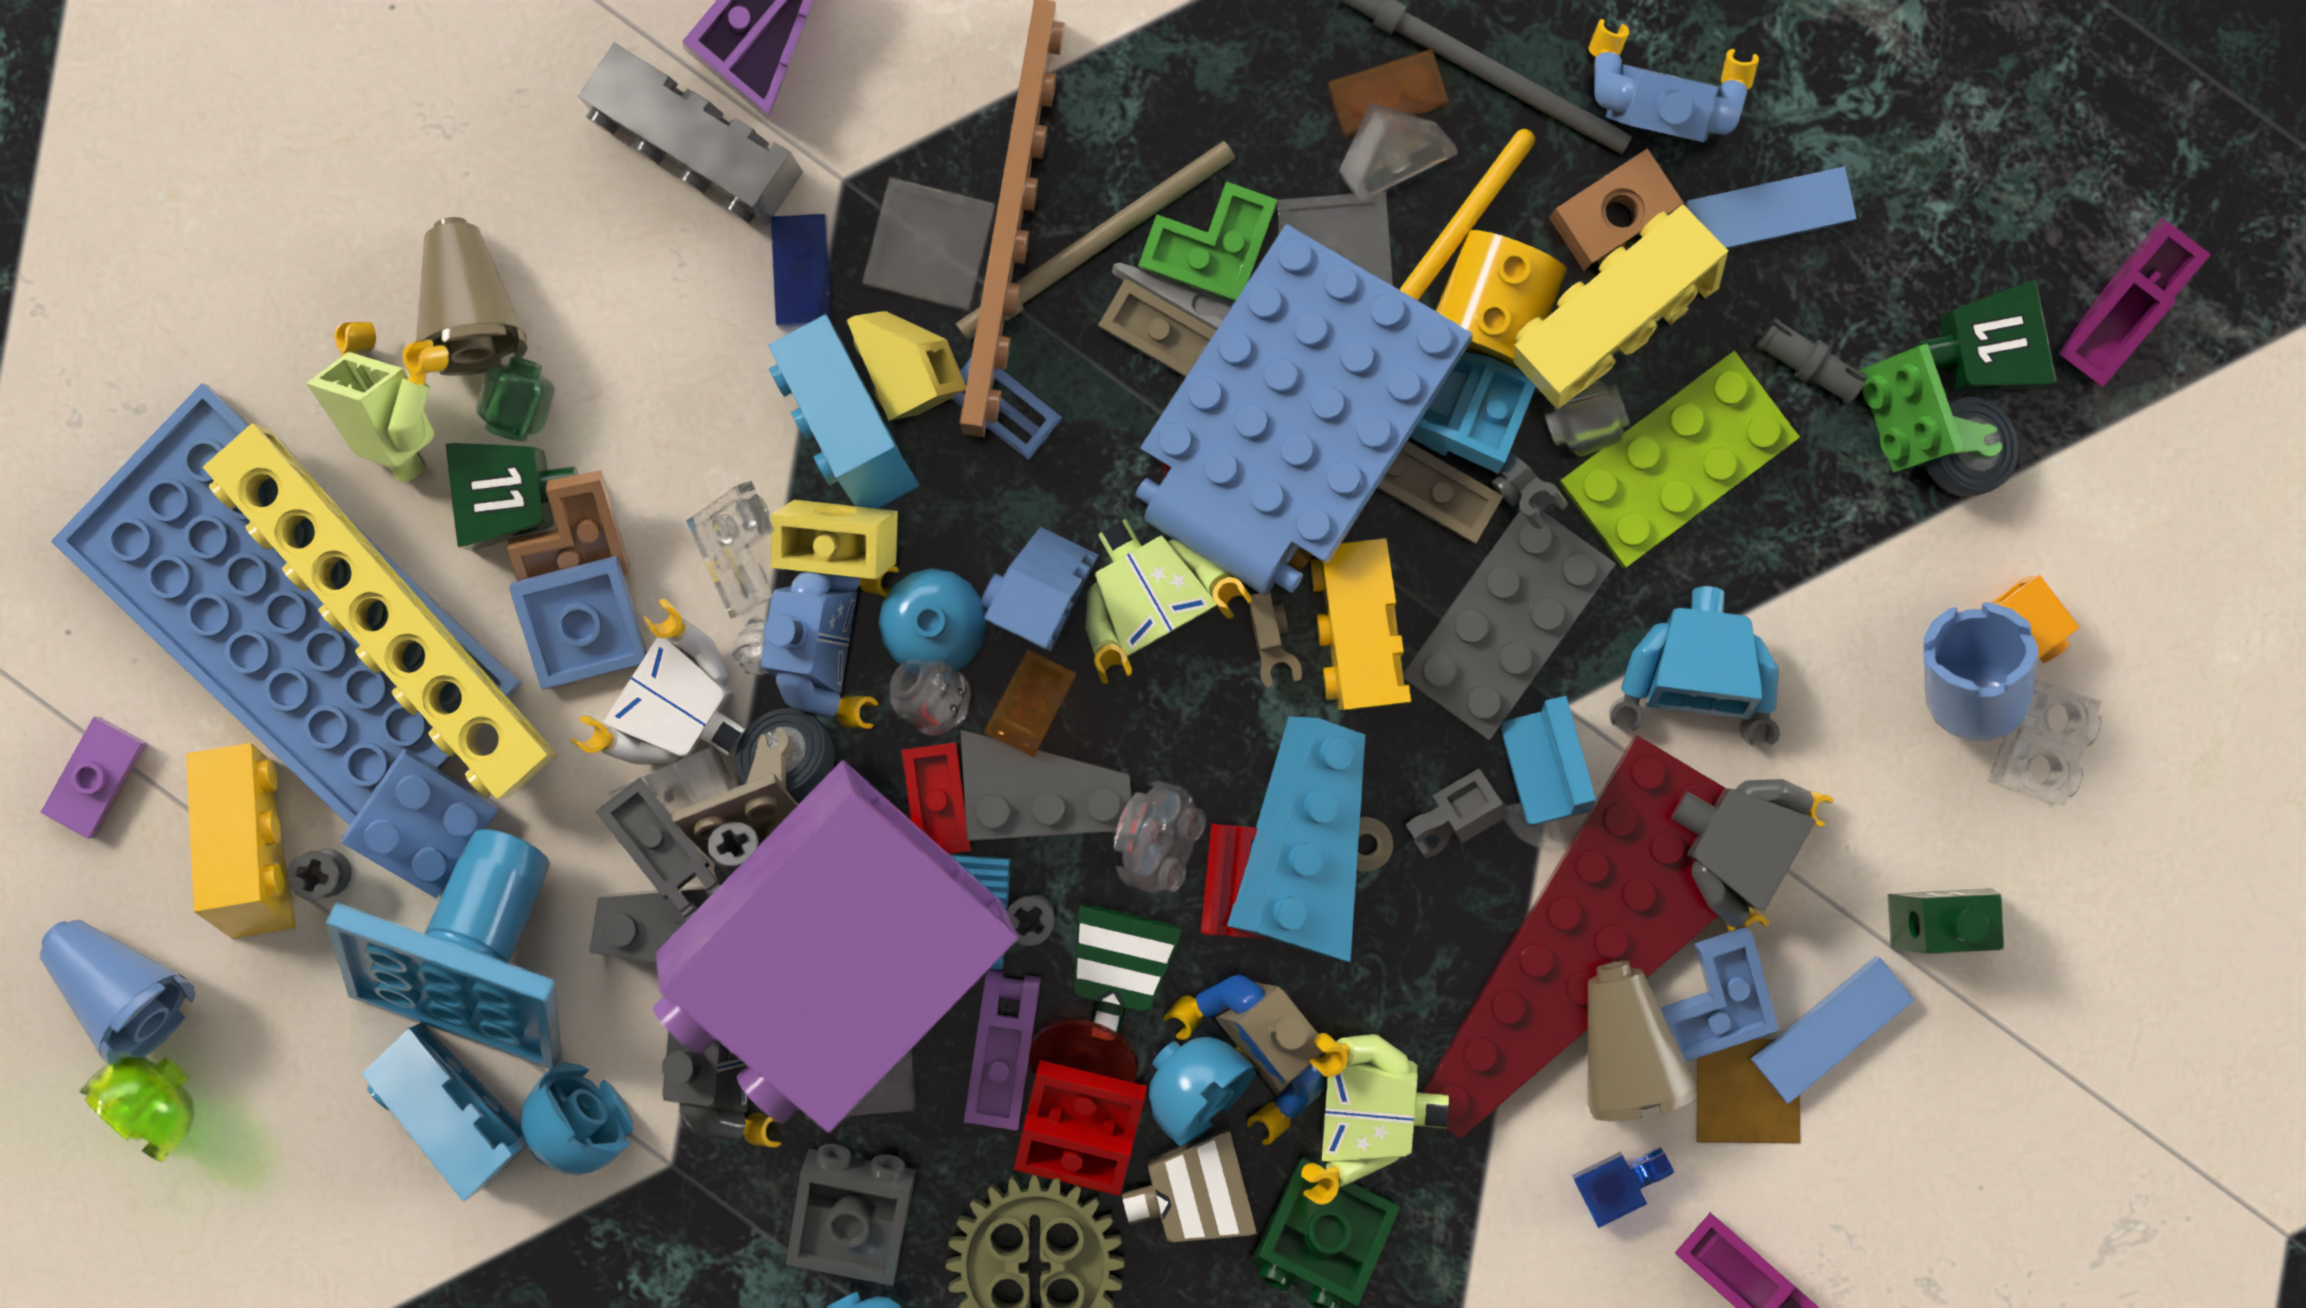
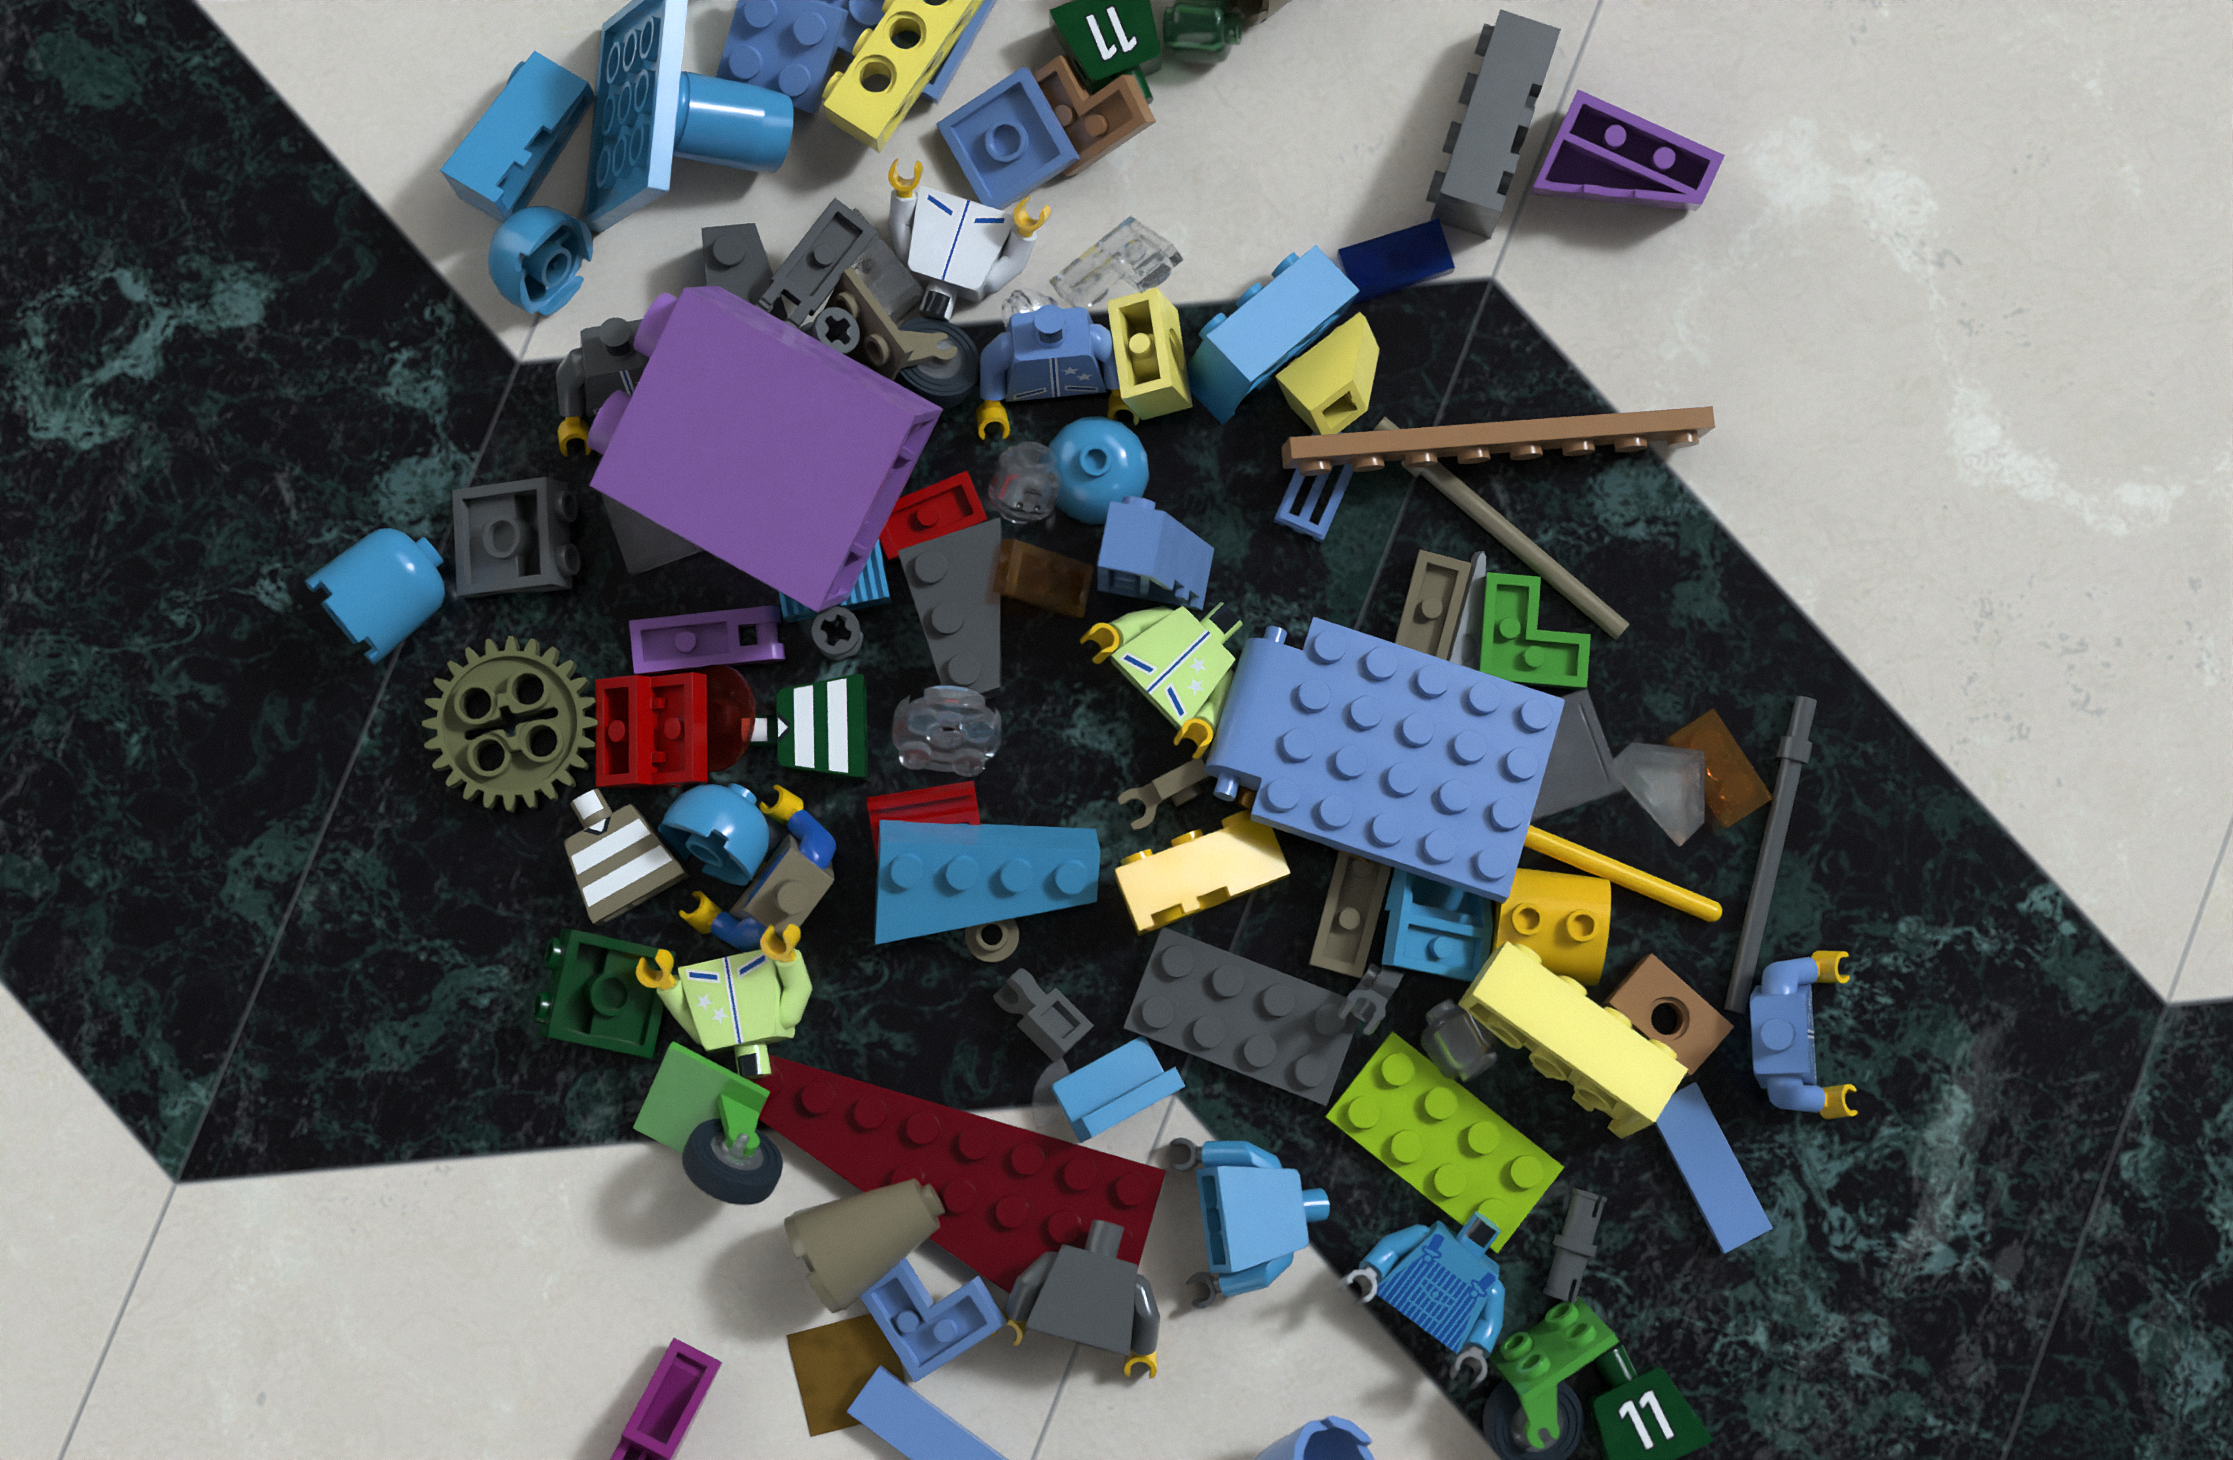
camera: 75 degrees right, 5 degrees down
(929, 244) = (1453, 371): clear plate -> none
(1483, 1160) = (713, 1123): none -> plate
(1614, 1188) = (722, 1263): clear blue plate -> none
(1819, 500) = (1440, 1285): none -> dark azure torso

